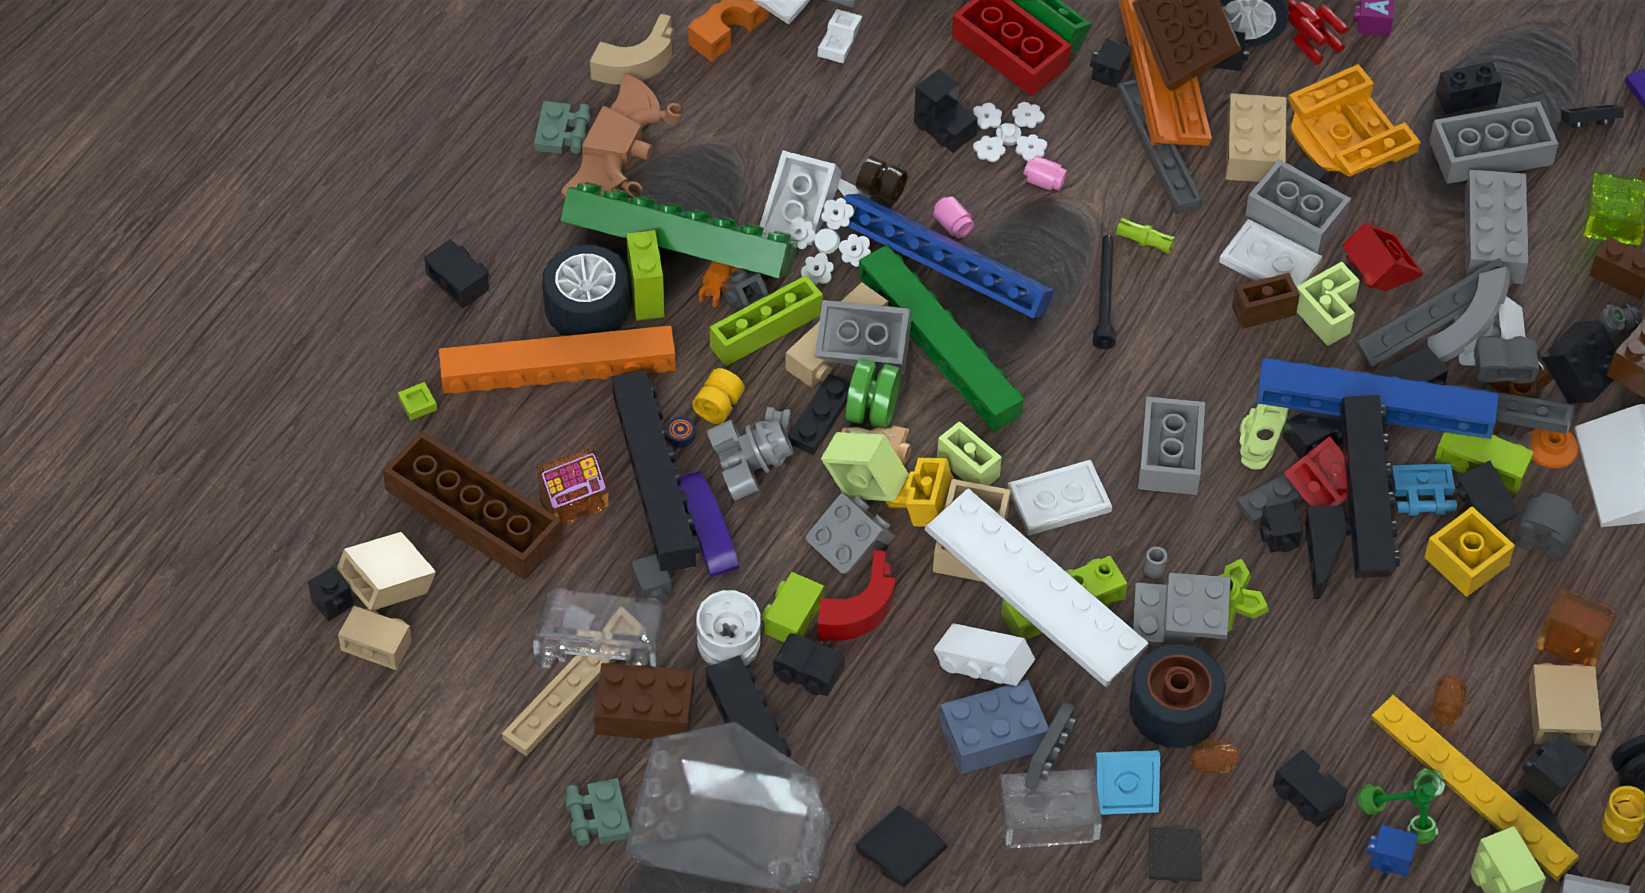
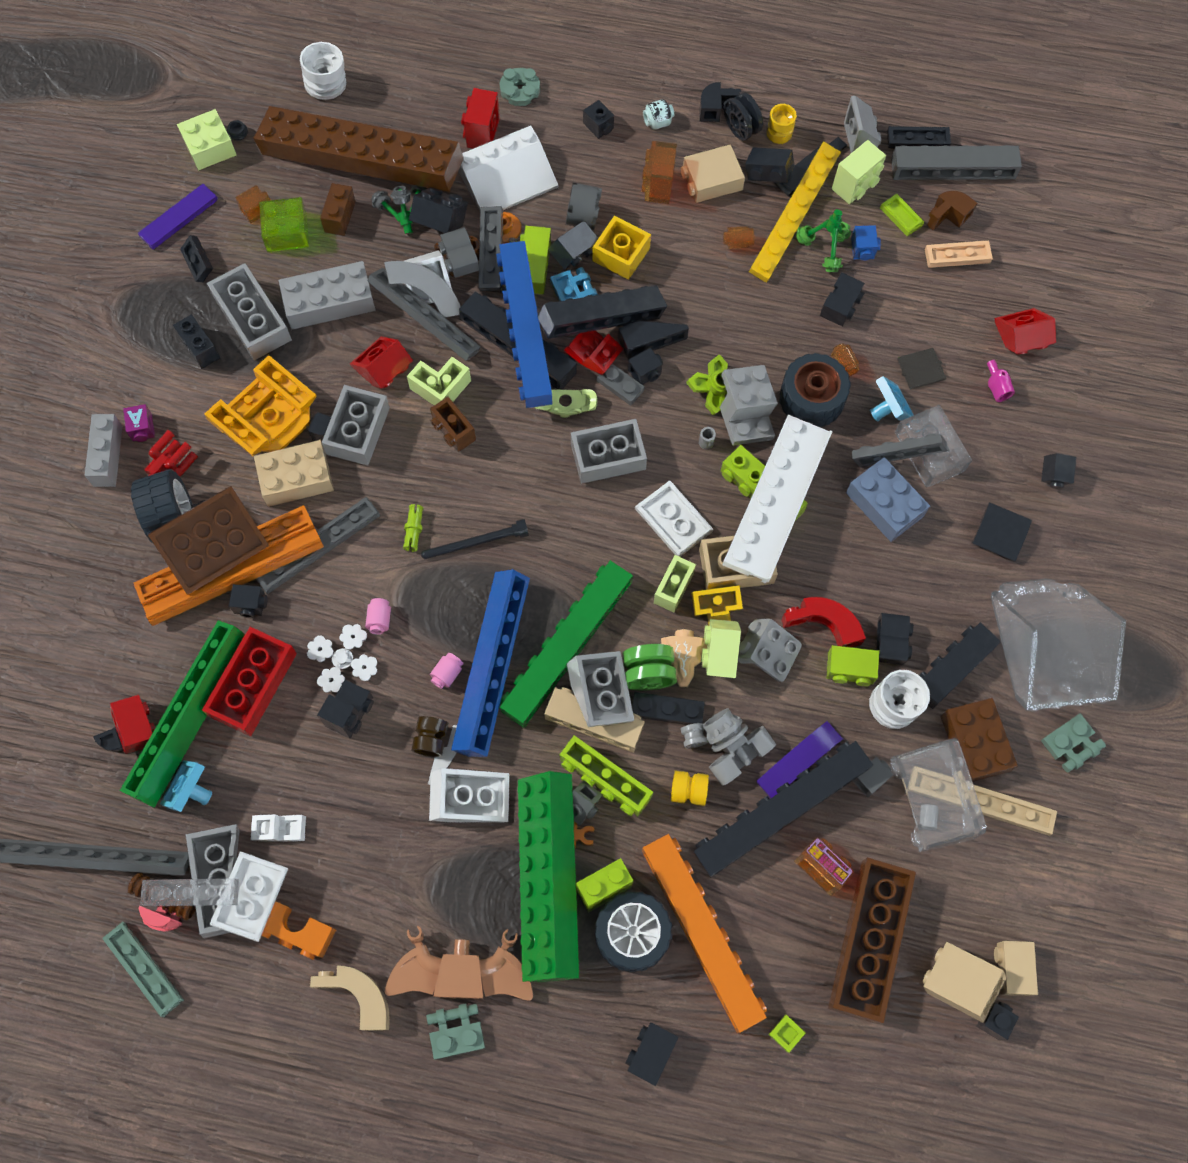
camera: 110 degrees left, 15 degrees up
(681, 431) = (727, 809): dark blue tile -> none
(828, 241) = (509, 756): white plant -> none
(984, 654) = (844, 517): white brick -> none
(1266, 254) = (403, 438): white tile -> none

